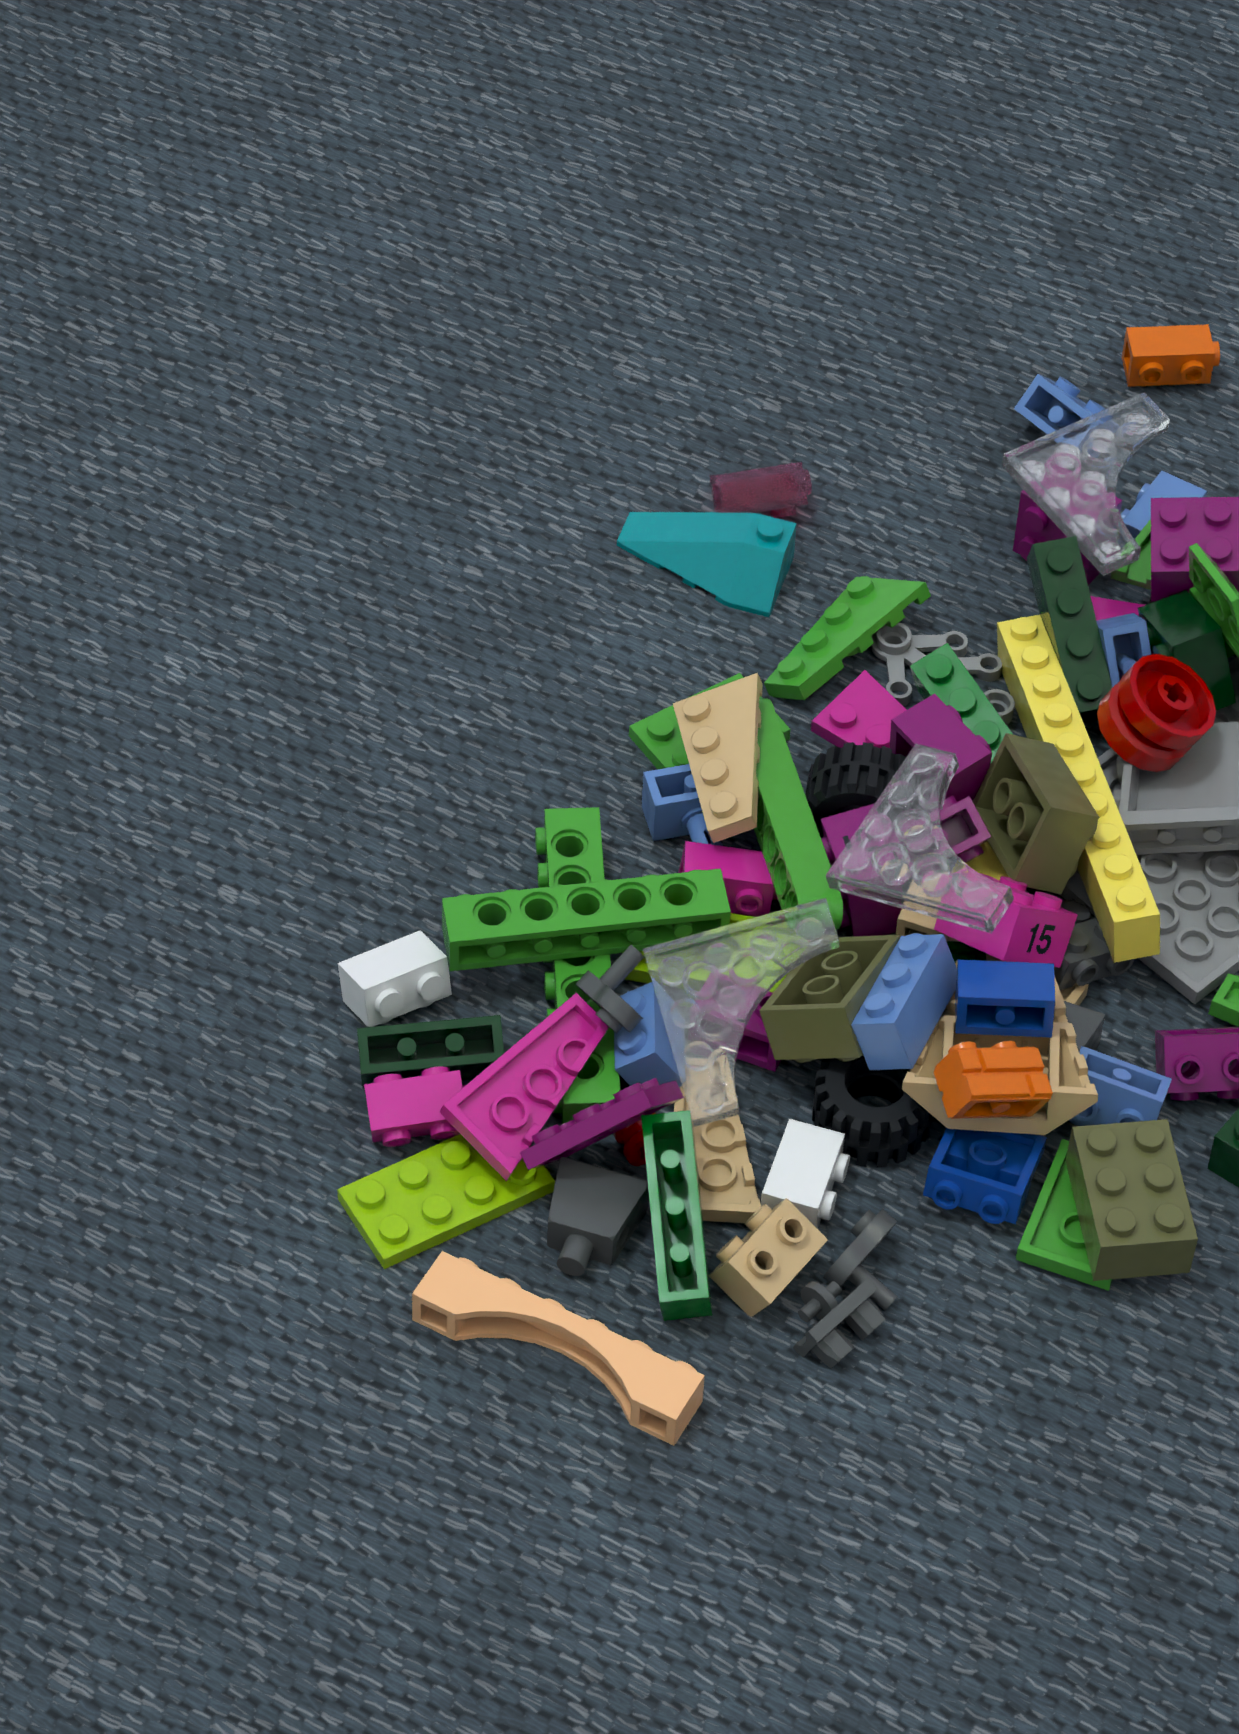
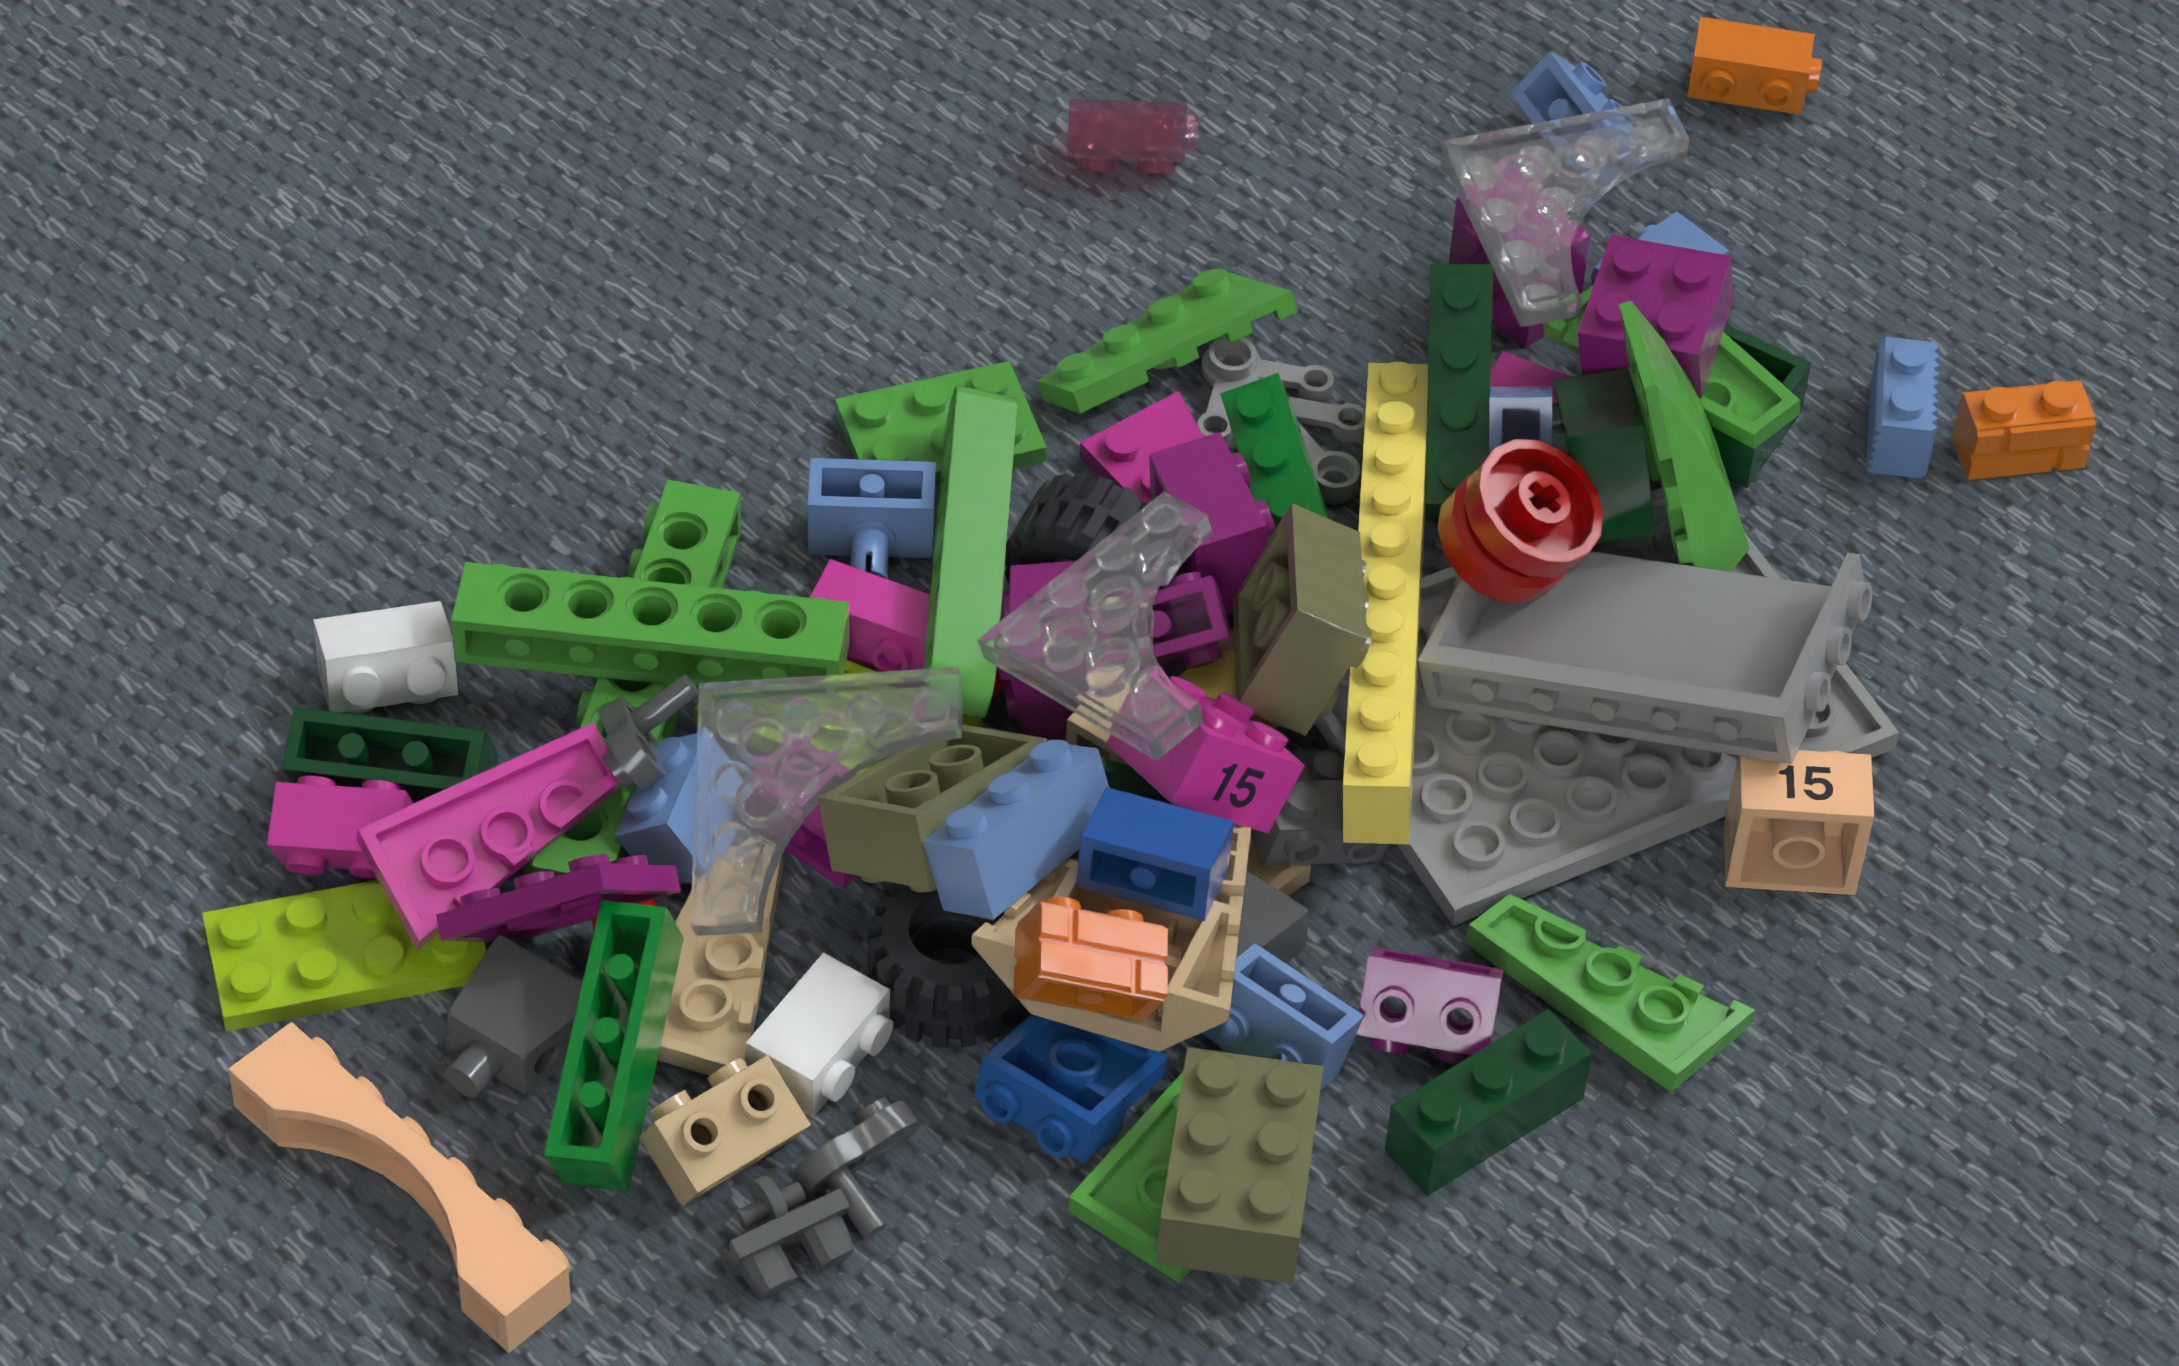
camera: 15 degrees right, 0 degrees up
(723, 753) = (915, 452): tan wing -> none
(727, 554) = (1052, 205): teal wedge -> none

